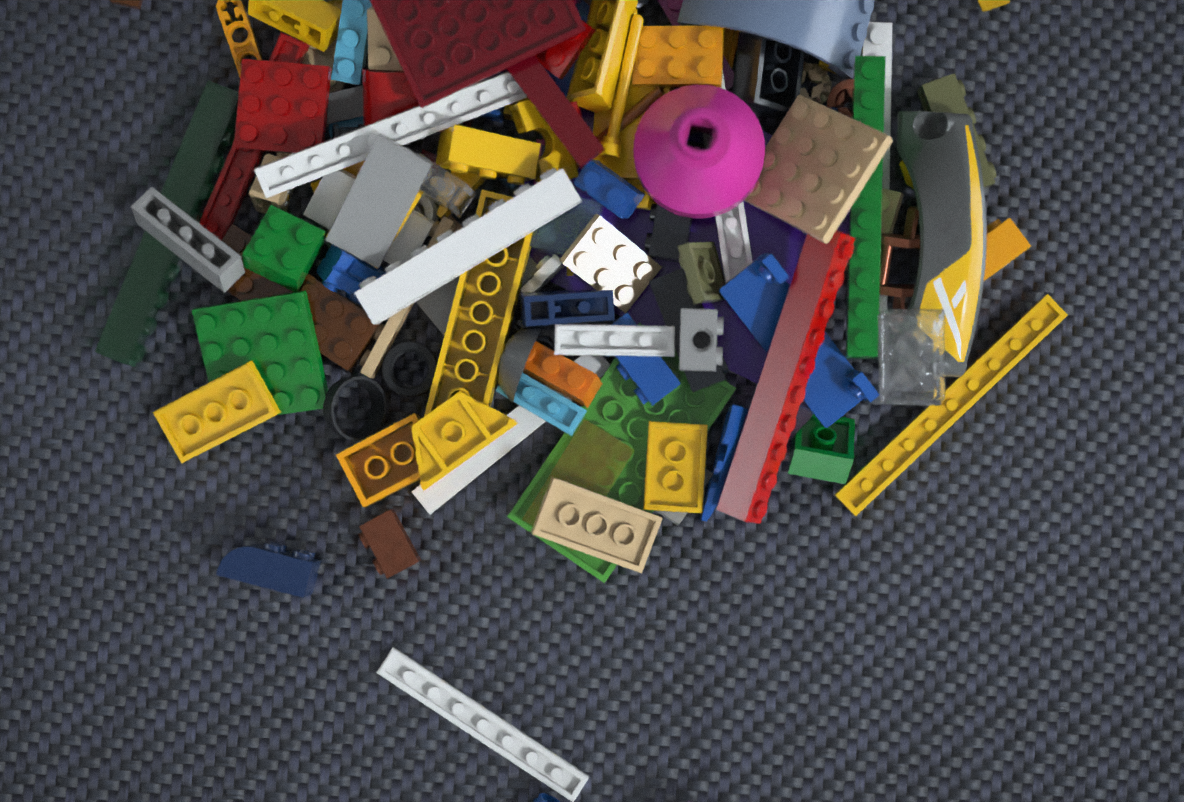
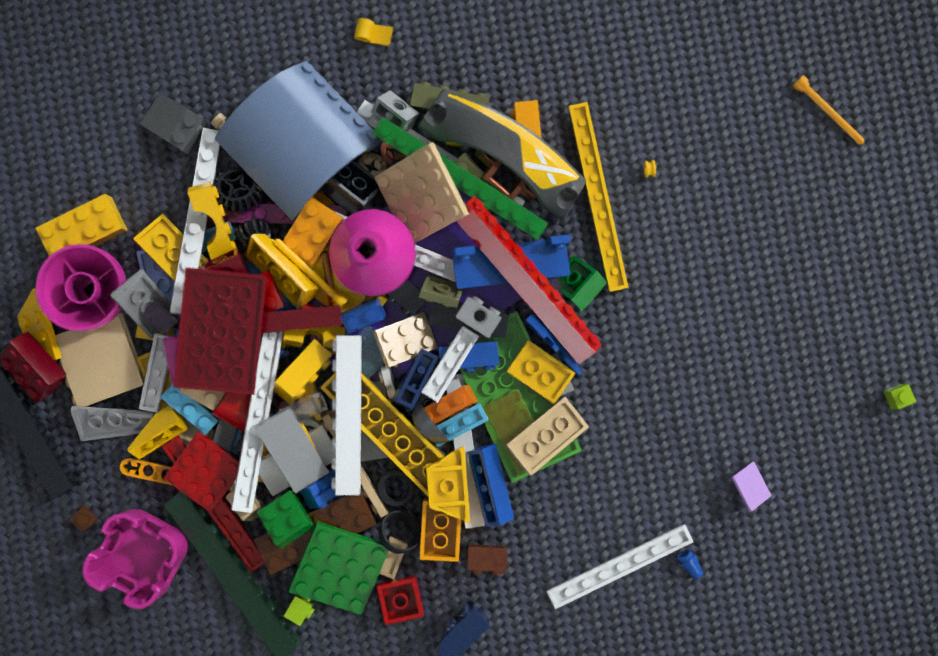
camera: 55 degrees left, 0 degrees up
(119, 86) = (136, 557): none -> dark pink piece
(177, 339) = (299, 610): none -> lime brick
(188, 239) = (248, 570): light grey brick -> none
(216, 411) = (354, 612): yellow tile -> none
(268, 462) = (400, 599): none -> red brick
(313, 421) = (393, 560): none -> tan tile
(487, 490) = (490, 485): none -> blue brick
(902, 70) = (395, 110): none -> light grey brick
(912, 356) = (559, 203): clear brick -> none
(1029, 450) = (649, 168): none -> yellow bush

